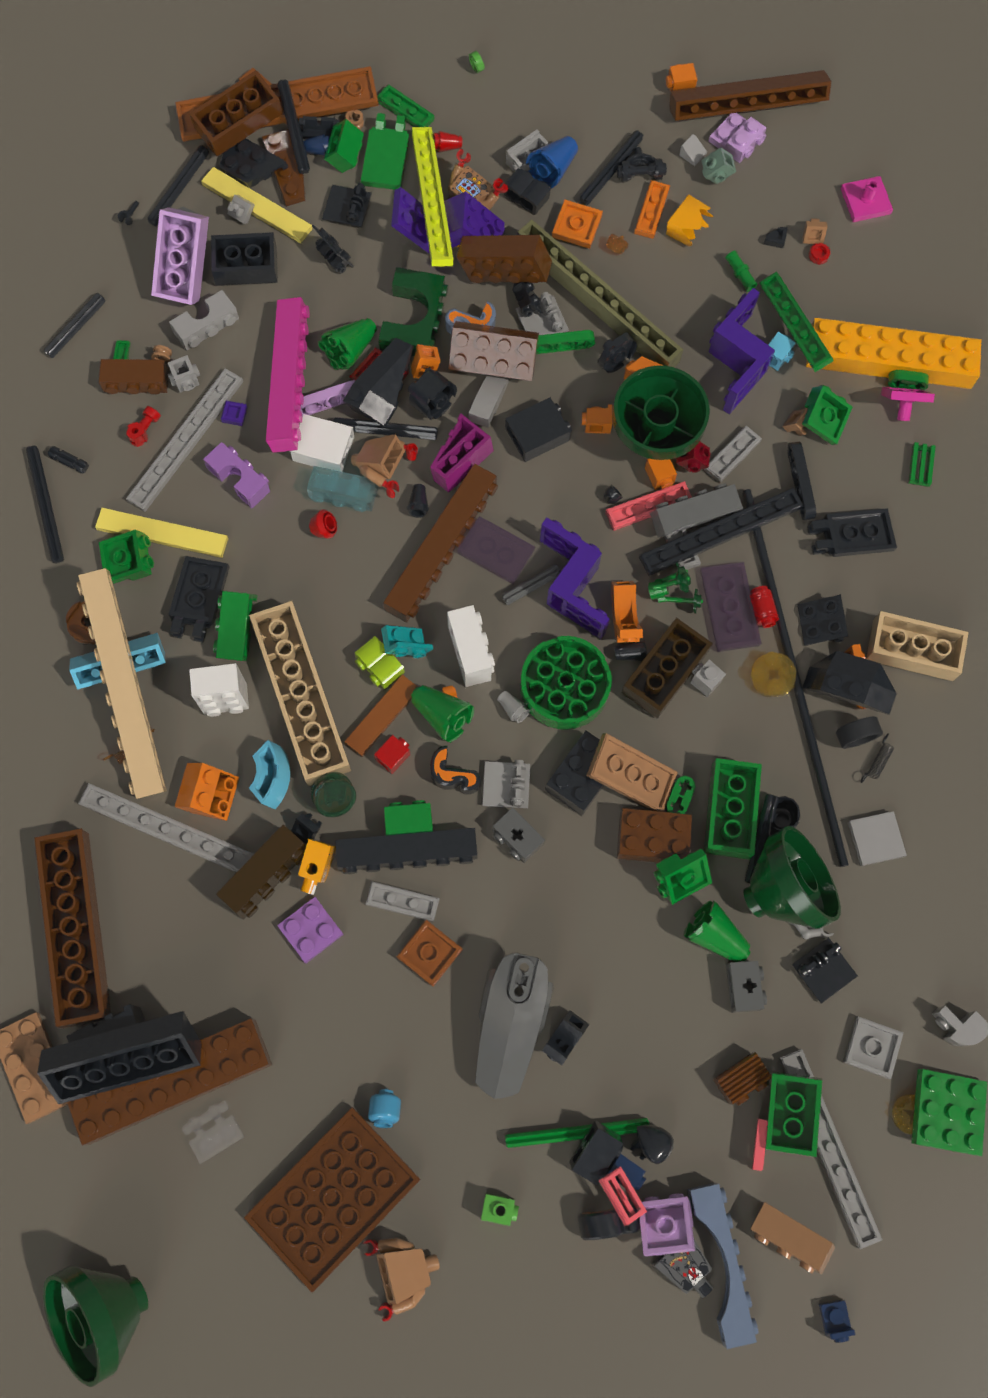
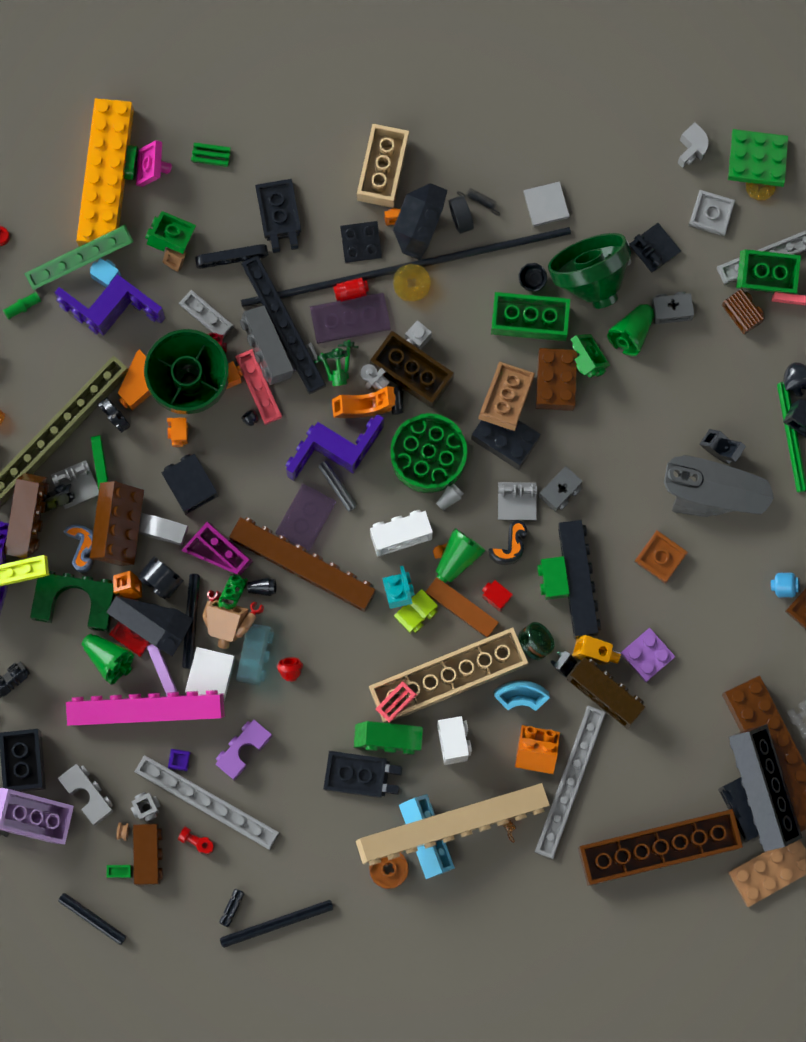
camera: 90 degrees left, 5 degrees up
(127, 556) = (328, 841): green plate -> none
(163, 532) = (300, 814): light yellow tile -> none
(282, 641) = (390, 696): none -> coral tile
(402, 901) = (619, 581): light grey tile -> none
(407, 462) = (230, 593): none -> green piece
(656, 624) = (374, 378): none -> light grey hips
(675, 794) = (522, 355): green beam -> none
(763, 831) = (542, 290): black axle -> none

